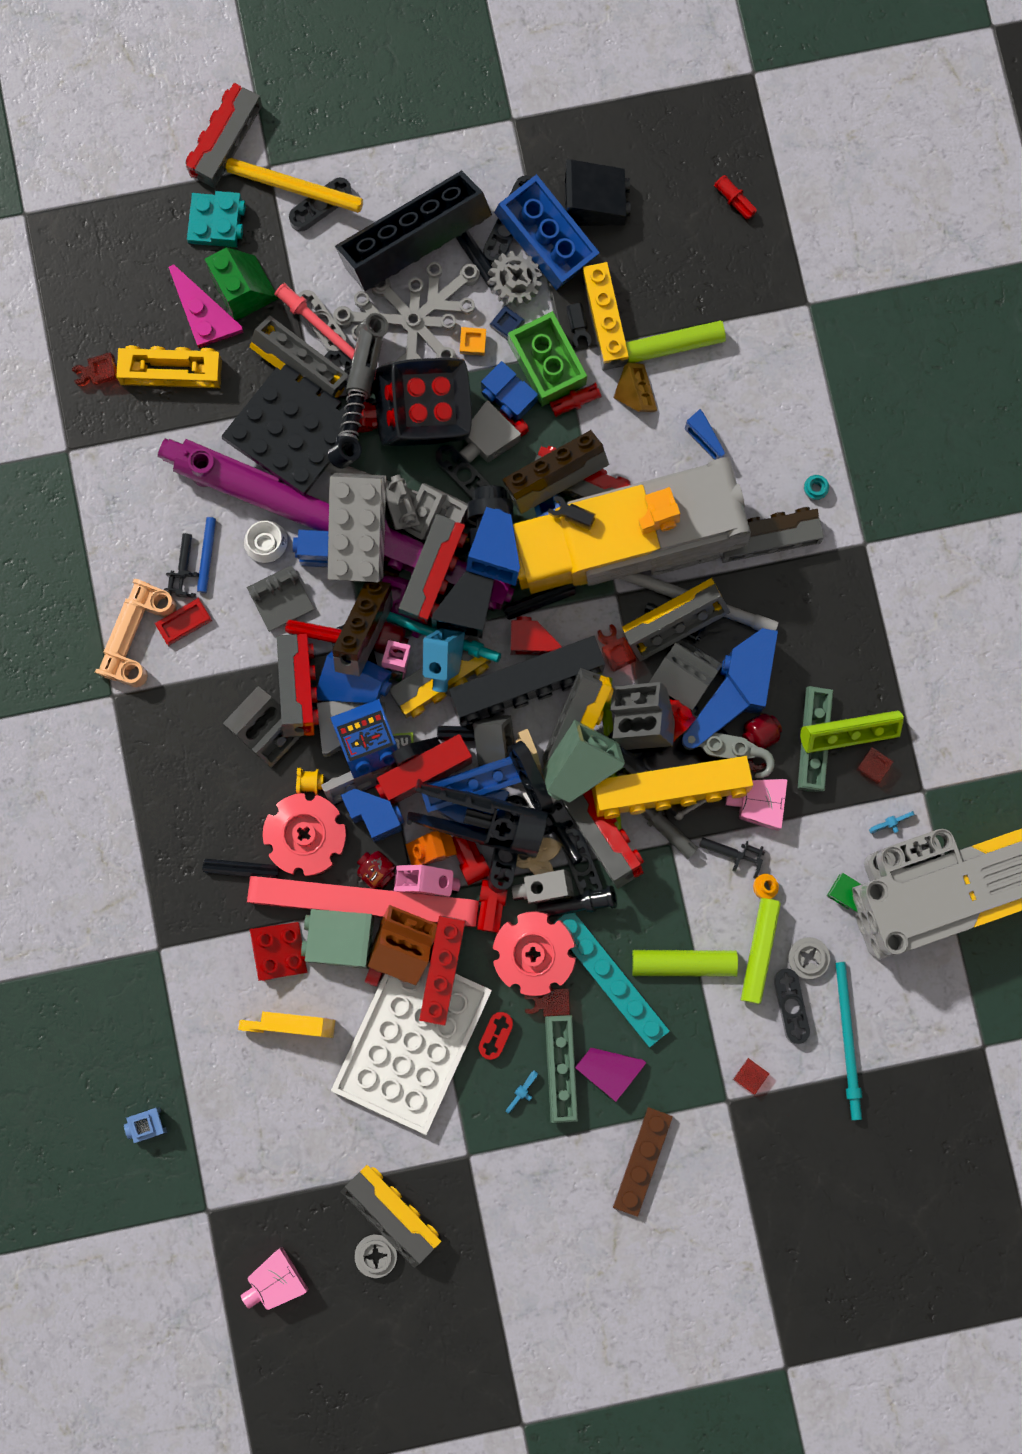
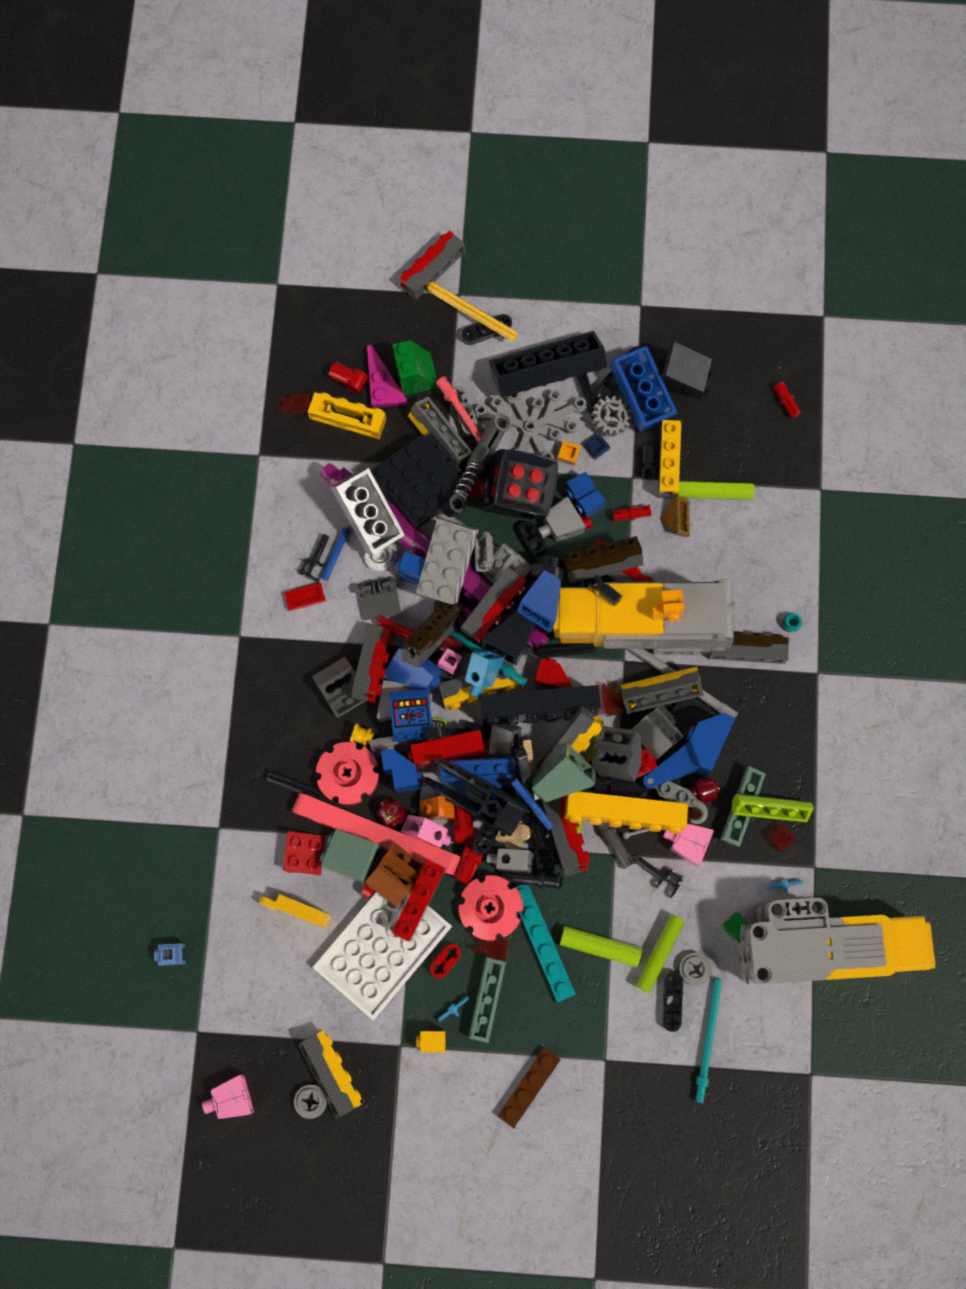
camera: 20 degrees right, 5 degrees down
(141, 599) = (247, 613): light nougat piece -> none
(161, 317) = (352, 379): none -> red piece
(216, 219) = (410, 321): teal plate -> none
(234, 489) = (367, 511): none -> light grey slope
(506, 1140) = (431, 1041): none -> yellow brick
(547, 358) = (619, 478): bright green brick -> none
(552, 810) = (532, 804): none -> blue bar
(609, 1071) = (523, 1011): magenta slope -> none
(704, 435) = (718, 561): blue slope -> none
(751, 1076) = (627, 1046): clear red plate -> none
(761, 891) = (671, 906): light orange plate -> none

